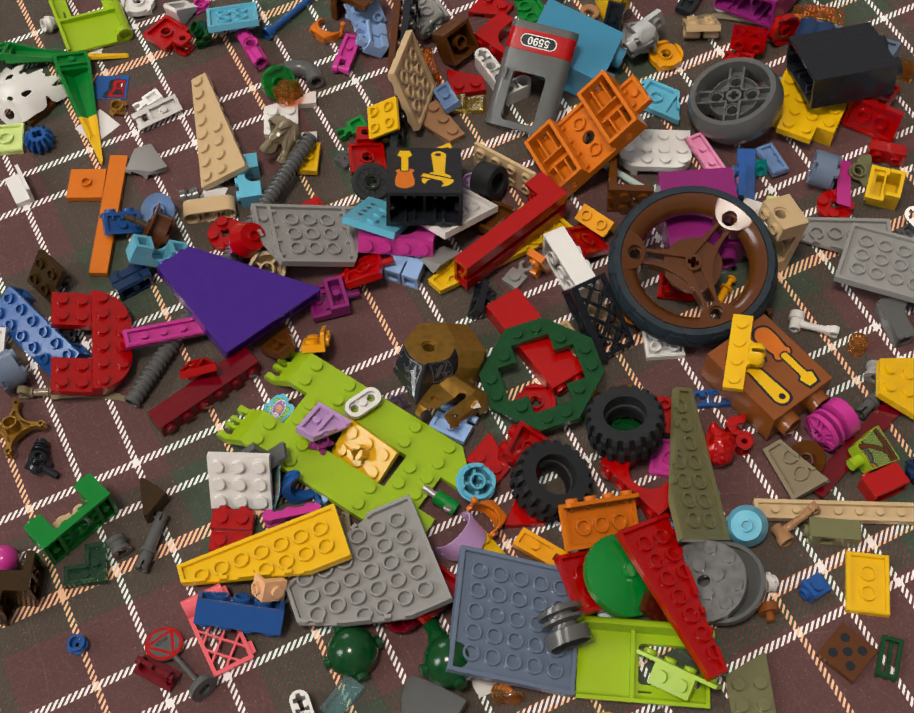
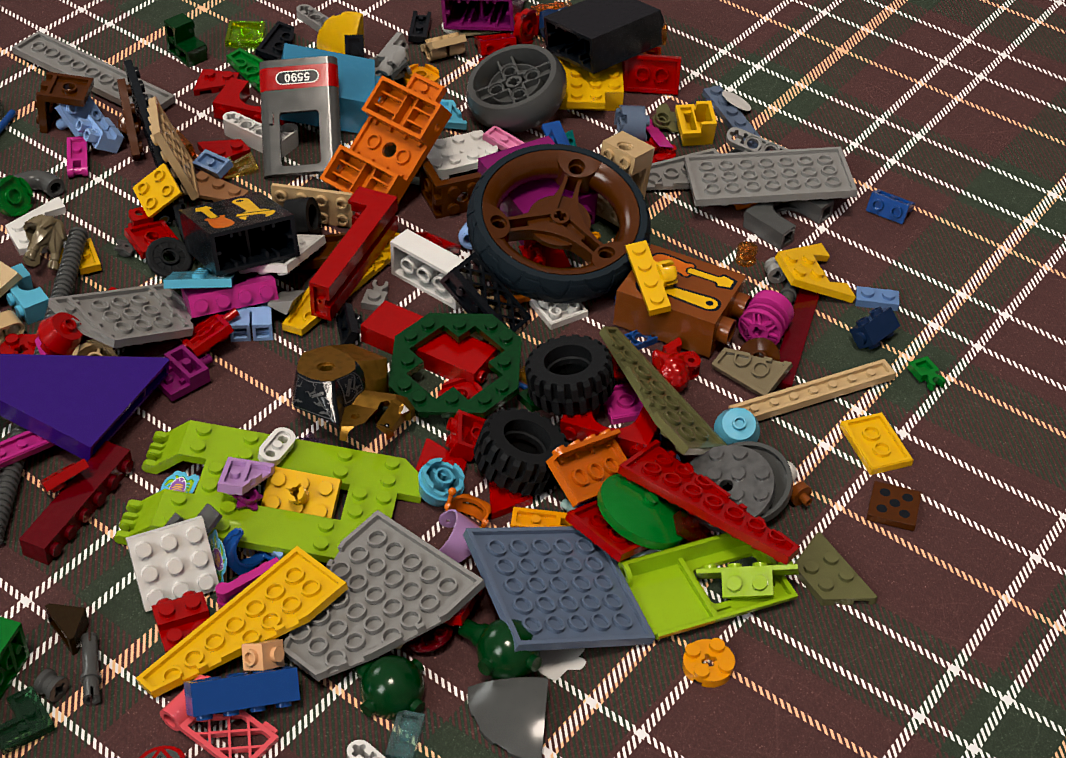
camera: 30 degrees left, 15 degrees down
(279, 345) = (145, 430): reddish brown wing -> none
(287, 92) = (29, 200): clear orange brick -> none
(316, 344) = (195, 409): light orange bracket -> none
(326, 36) = (45, 147): orange helmet -> none
(351, 128) = (119, 218): green plate -> none
(442, 499) = (411, 512): green piece -> none
(453, 39) = (193, 111): reddish brown piece -> none
(458, 434) = (374, 441): light blue plate -> none
(504, 694) = (582, 667): clear orange piece -> none
(539, 263) = (395, 273): orange plate -> none
(565, 630) = (615, 568): dark grey wheel -> none
(595, 221) = (433, 223): light orange bracket -> none
(775, 163) = (581, 134): medium blue plate -> none
(783, 534) = (773, 426): medium nougat brick -> none
(797, 321) = (712, 251): white brick -> none
(813, 588) = (830, 463): blue bracket -> none
(832, 532) = (819, 409): olive brick -> none
(871, 451) = (815, 331): torso -> none
(883, 483) = (840, 354): red brick -> none
(885, 675) = (936, 509): dark green tile -> none
(887, 152) = (678, 98): red bracket -> none

